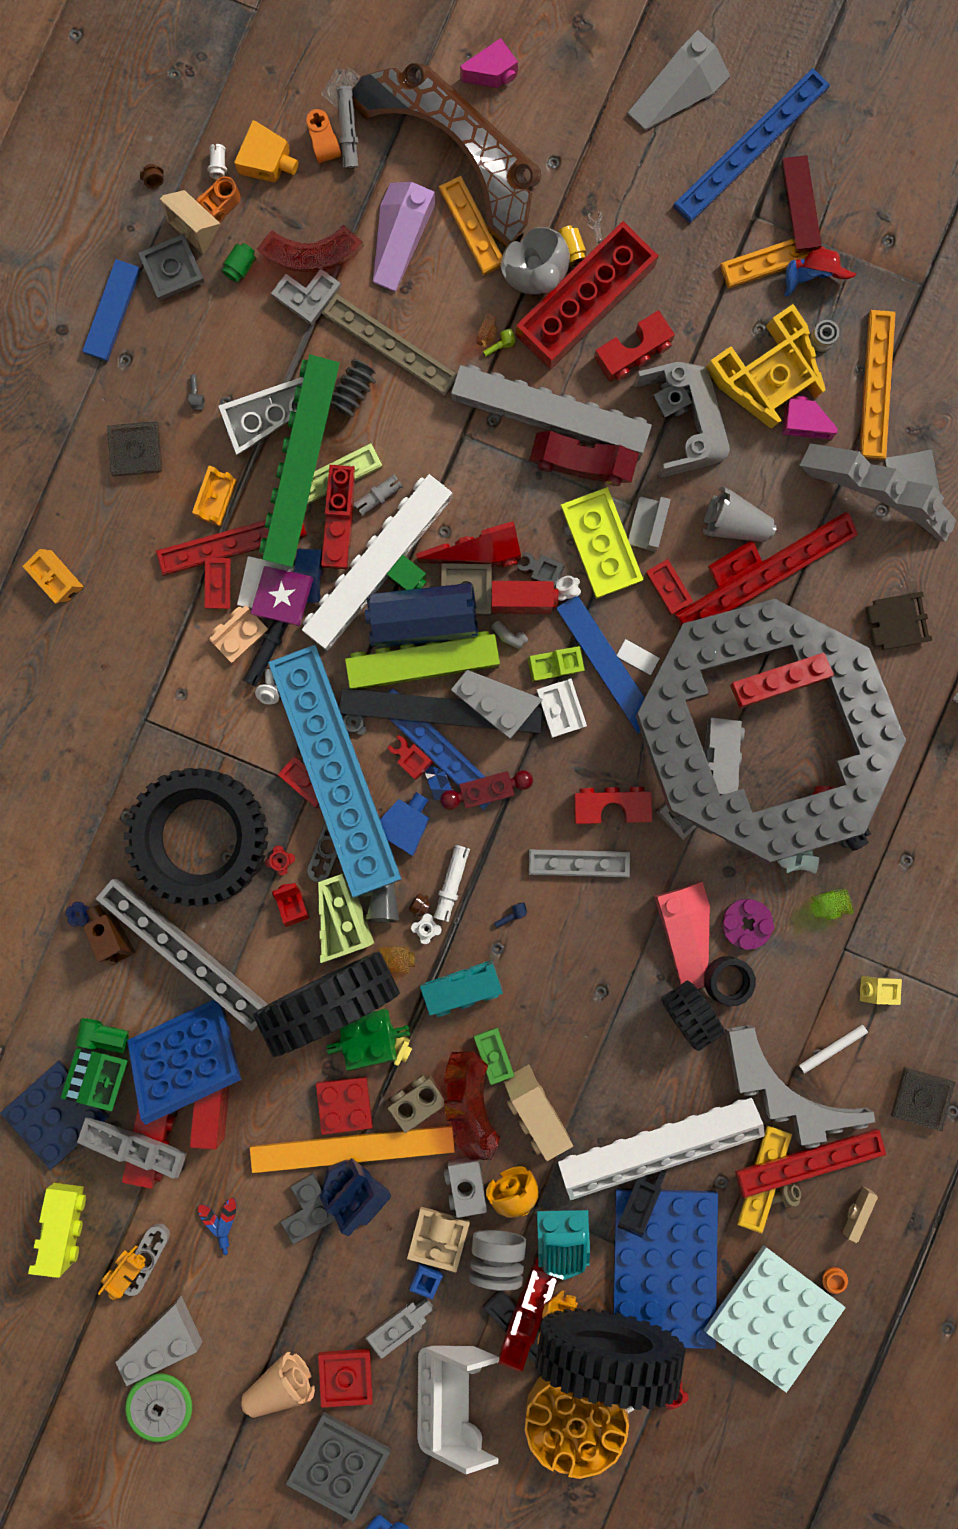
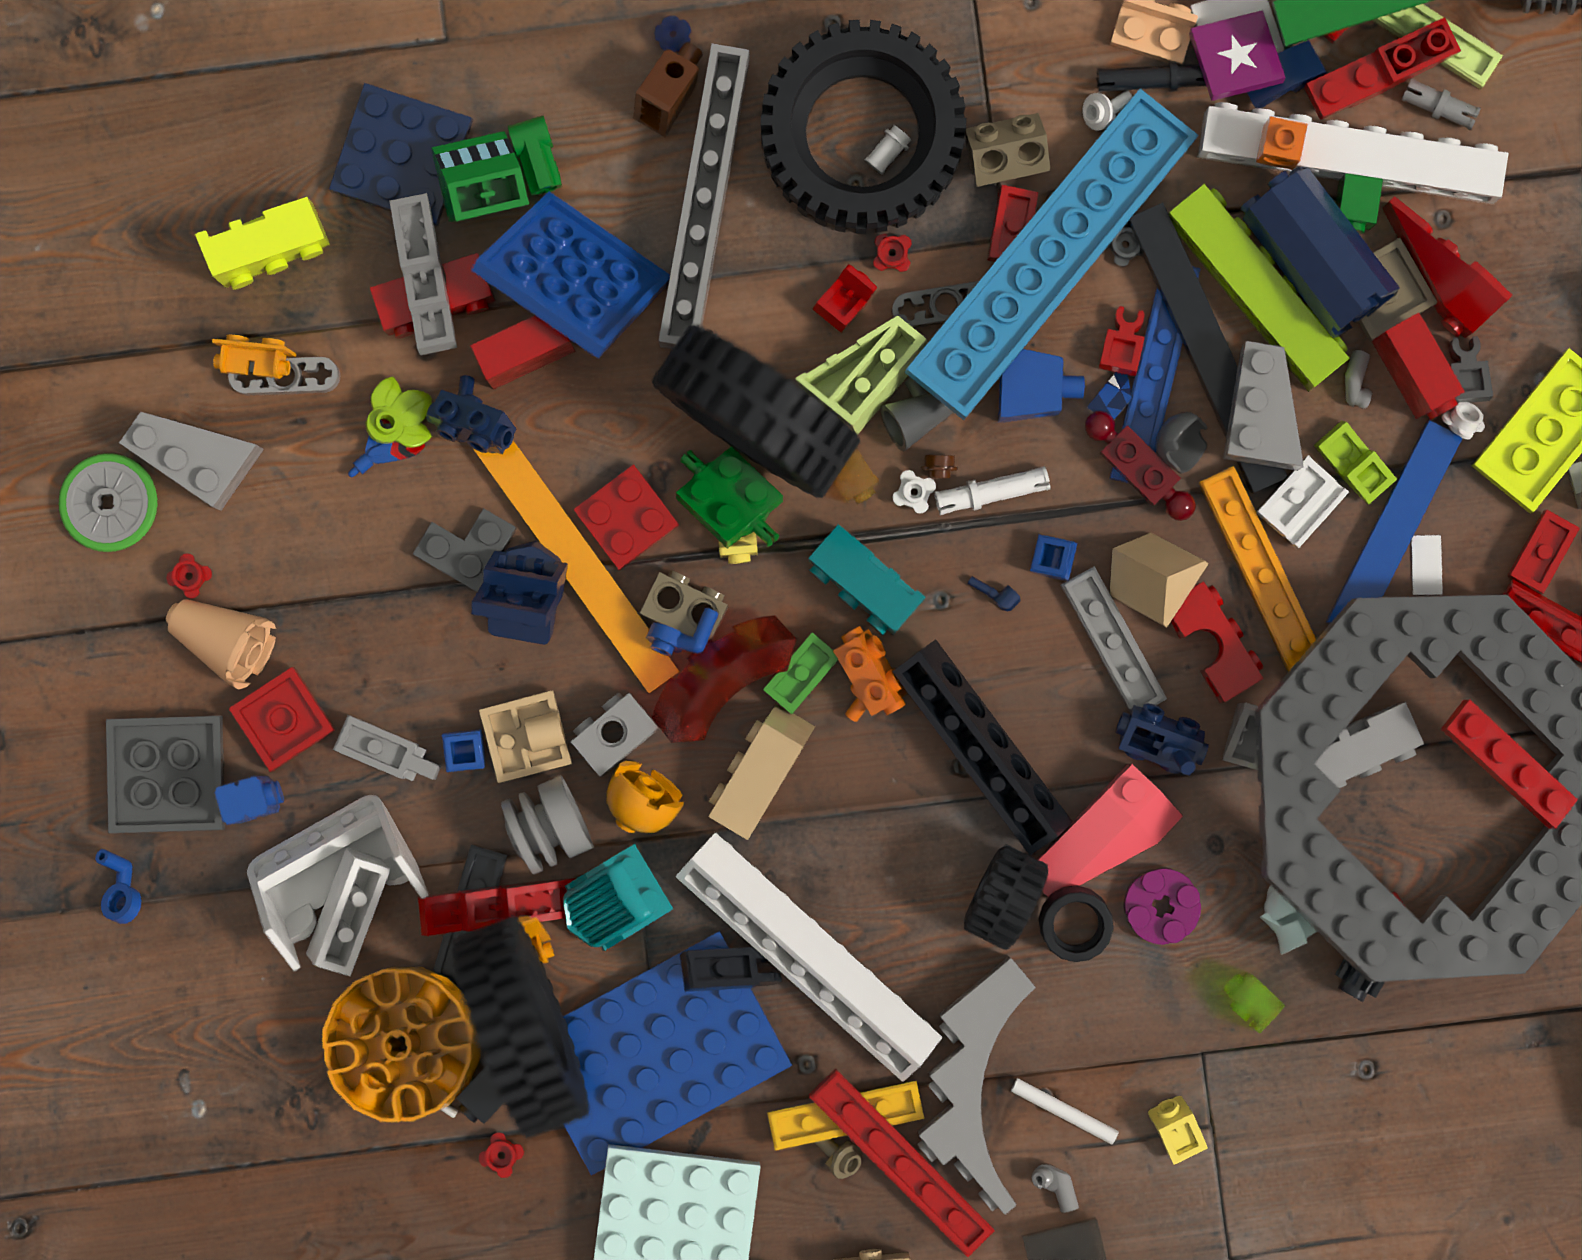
camera: 60 degrees right, 0 degrees up
(207, 1201) = (402, 410): none -> lime plate
(218, 828) = (888, 149): none -> white pin
(229, 1391) = (178, 575): none -> red plate
(234, 1167) = (468, 420): none -> dark blue brick
(259, 760) = (1007, 149): none -> dark tan brick
(347, 601) = (1281, 143): none -> orange brick
(381, 1429) = (249, 799): none -> blue brick
(430, 1125) = (669, 640): none -> blue plate
(481, 1407) = (348, 911): none -> white brick
(486, 758) = (1180, 441): none -> dark grey hair
(510, 870) = (1053, 557): none -> blue brick
(517, 1016) = (870, 674): none -> orange brick
(555, 819) = (1153, 576): none -> tan slope
(583, 753) = (1258, 565): none -> light orange tile
(597, 976) = (982, 747): none -> black brick
(652, 869) = (1168, 742): none -> dark blue brick
(871, 1076) = (1056, 1181): none -> light grey arm

